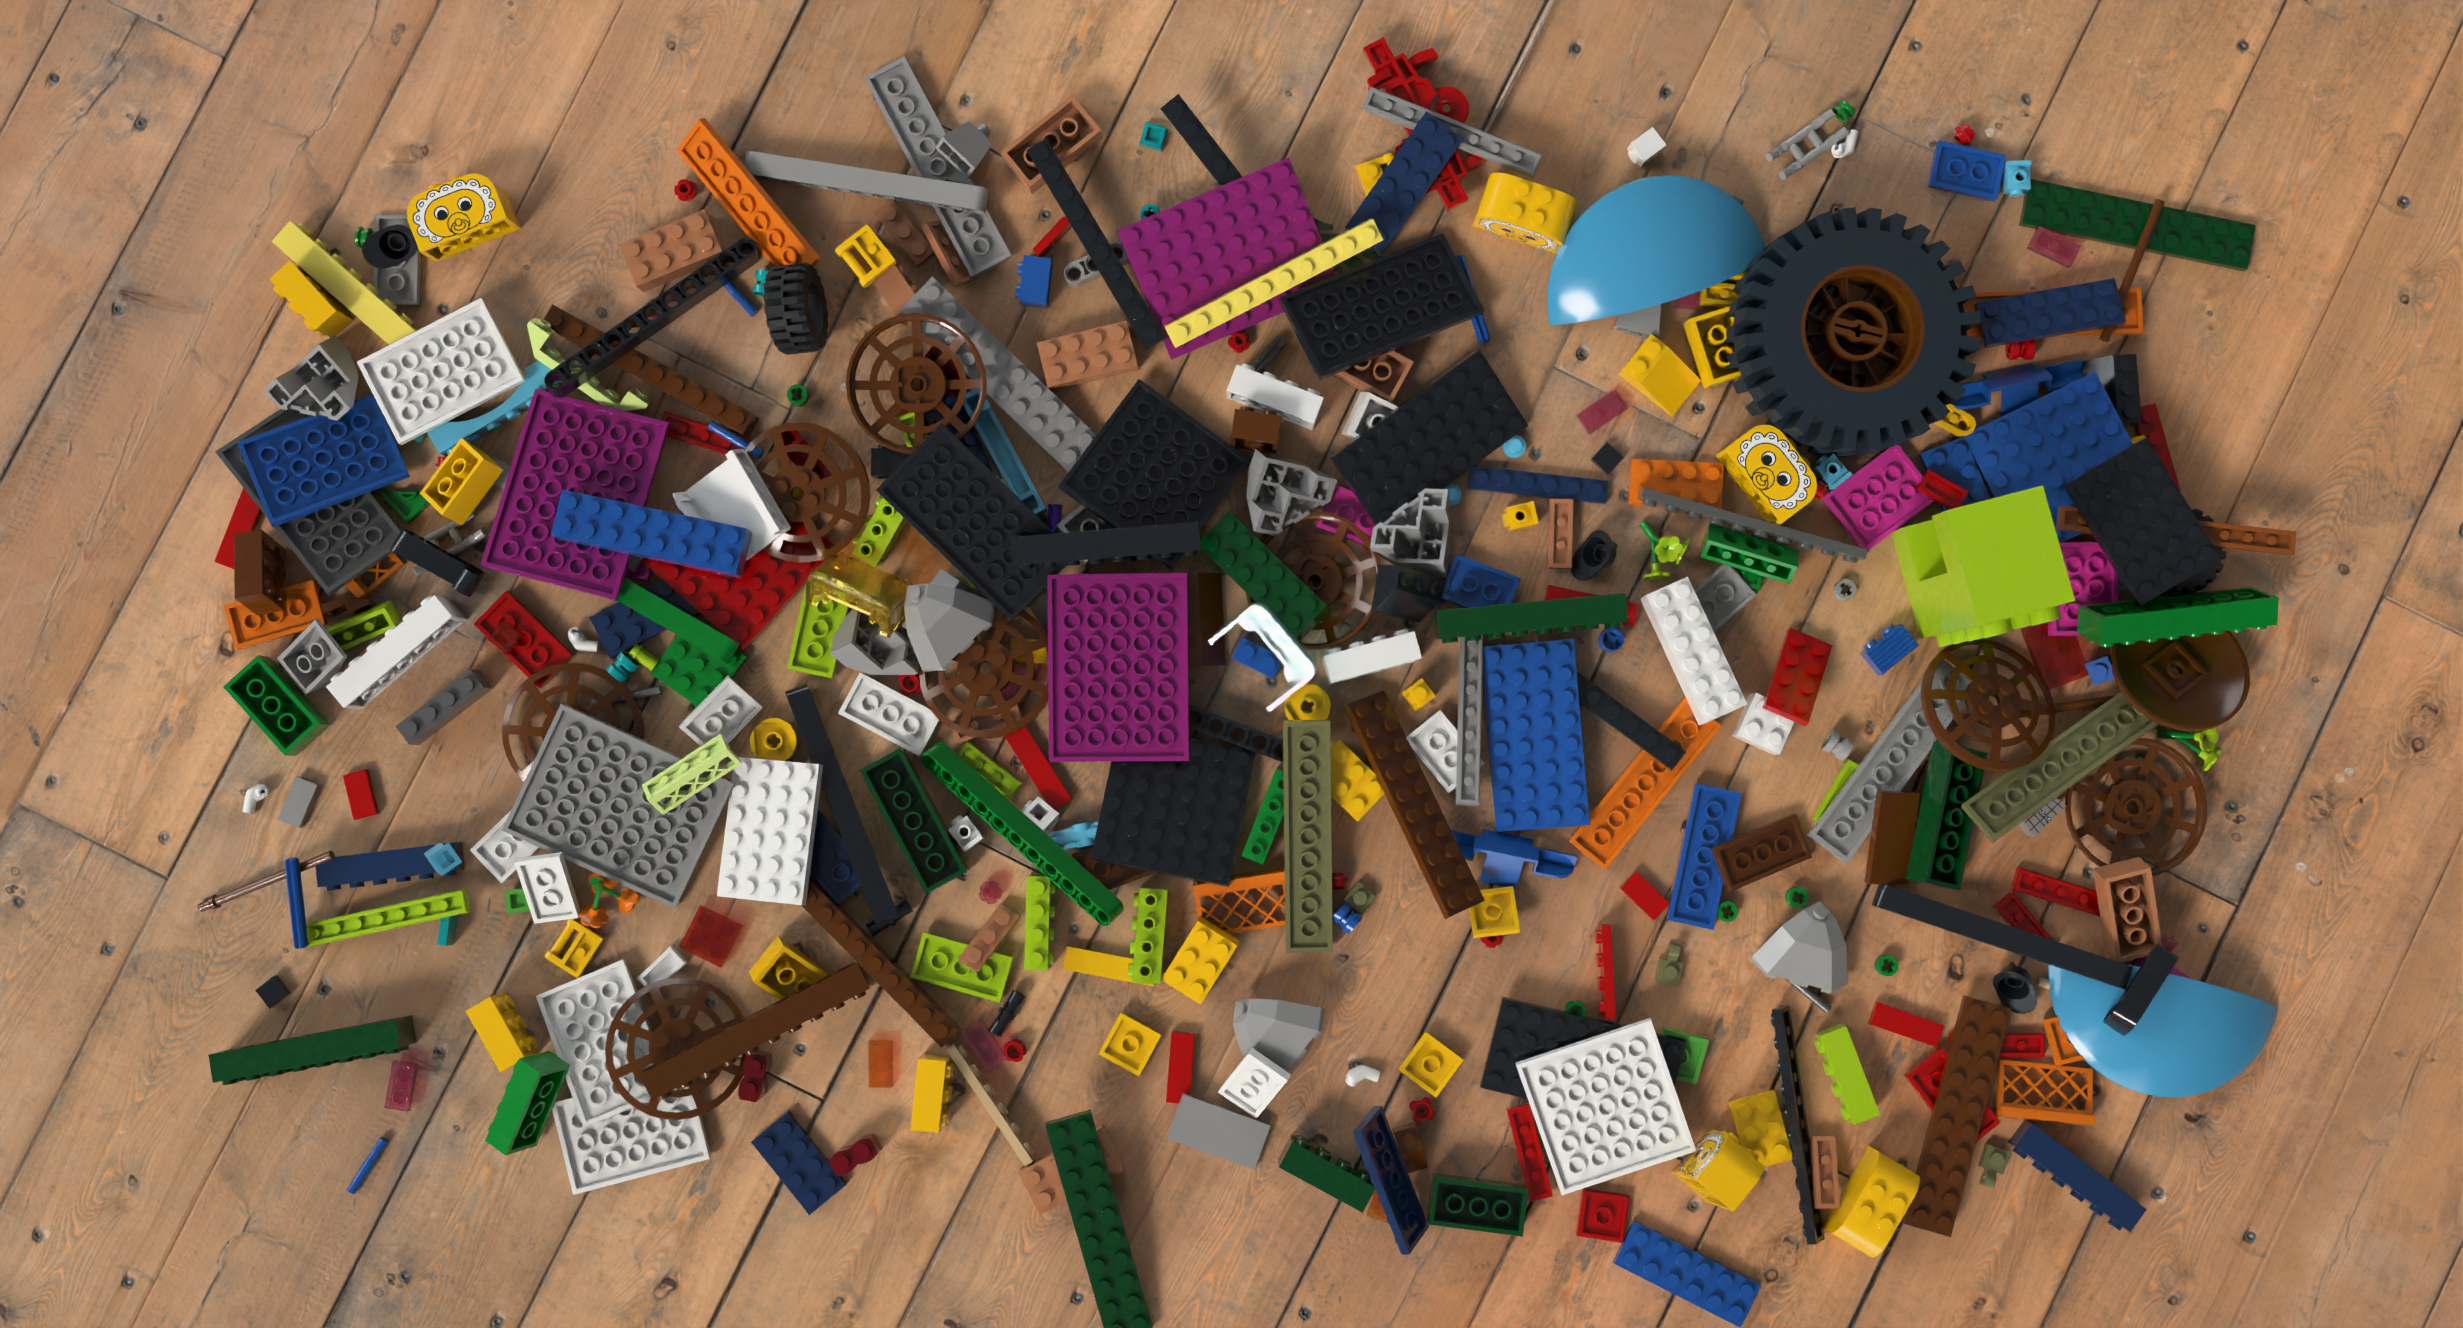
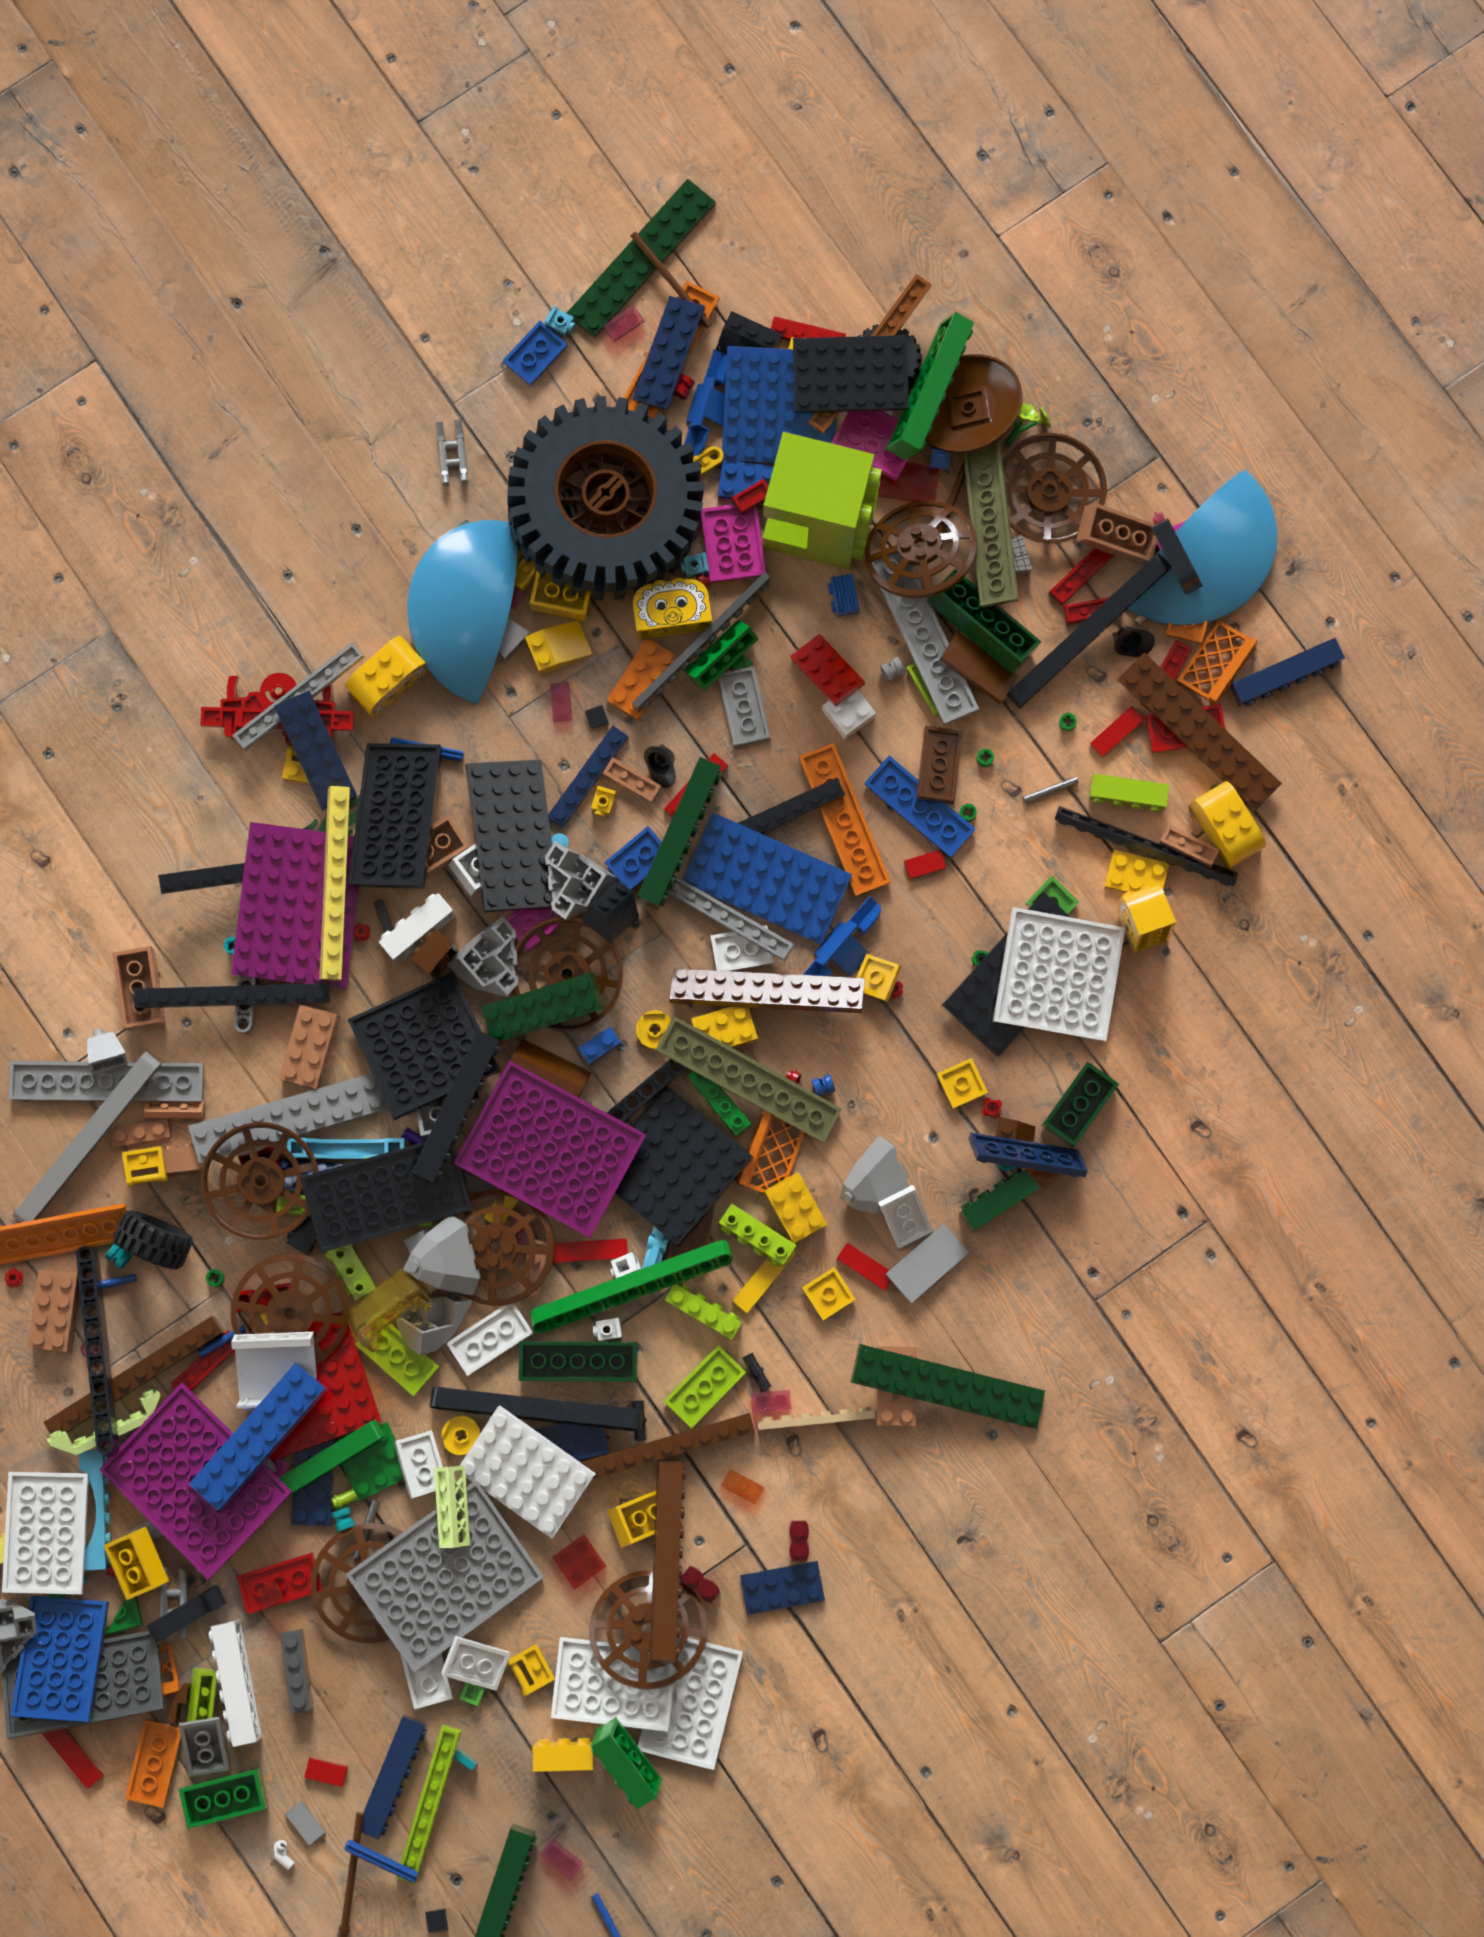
camera: 65 degrees left, 5 degrees down
(259, 572) = (117, 1753): reddish brown brick -> none
(442, 858) = (410, 1727): medium azure brick -> none
(580, 642) = (303, 1542): white arm -> none
(596, 915) = (496, 1622): orange plant -> none
(663, 967) = (582, 1610): white tile -> none
(906, 688) = (479, 1314): red plate -> none
(932, 1092) = (784, 1456): yellow brick -> none
(985, 896) = (656, 1336): clear pink plate -> none
(988, 938) = (694, 1354): nougat plate -> none
(990, 770) = (572, 1286): lime tile -> none
(1014, 1044) = (787, 1376): red plate -> none
(1035, 281) = (232, 1056): blue brick -> none
(1052, 237) = (207, 1026): red tile -> none
(1153, 136) = (175, 912): teal tile -> none
(1298, 663) = (618, 1016): clear light blue windscreen -> none
(1359, 897) = (814, 1068): olive plate -> none
(1361, 1072) = (941, 1137): white arm -> none
(1371, 657) = (645, 963): white brick -> none
(1418, 694) = (690, 944): yellow brick -> none
(1514, 447) = (551, 777): medium azure plate -> none
(1529, 1152) = (1063, 1047): red plate -> none
(1602, 1215) = (1137, 1020): red tile -> none
(1606, 980) = (971, 925): red plate -> none
(1614, 638) = (728, 786): blue wheel -> none
(1646, 147) = (388, 566): white brick -> none
(1667, 550) = (685, 711): lime plant -> none
(1669, 969) = (987, 876): olive plate -> none
(1686, 1273) = (1210, 983): blue plate -> none
(1693, 651) = (768, 732): white brick -> none
(1807, 951) = (1026, 771): light grey brick -> none
(1837, 589) = (788, 598): light grey bush -> none
(1843, 111) = (443, 414): green bush -> none
(1846, 147) = (470, 426): white arm -> none
(1964, 134) = (508, 340): red plate -> none
(1993, 1161) = (1245, 724): olive plate -> none

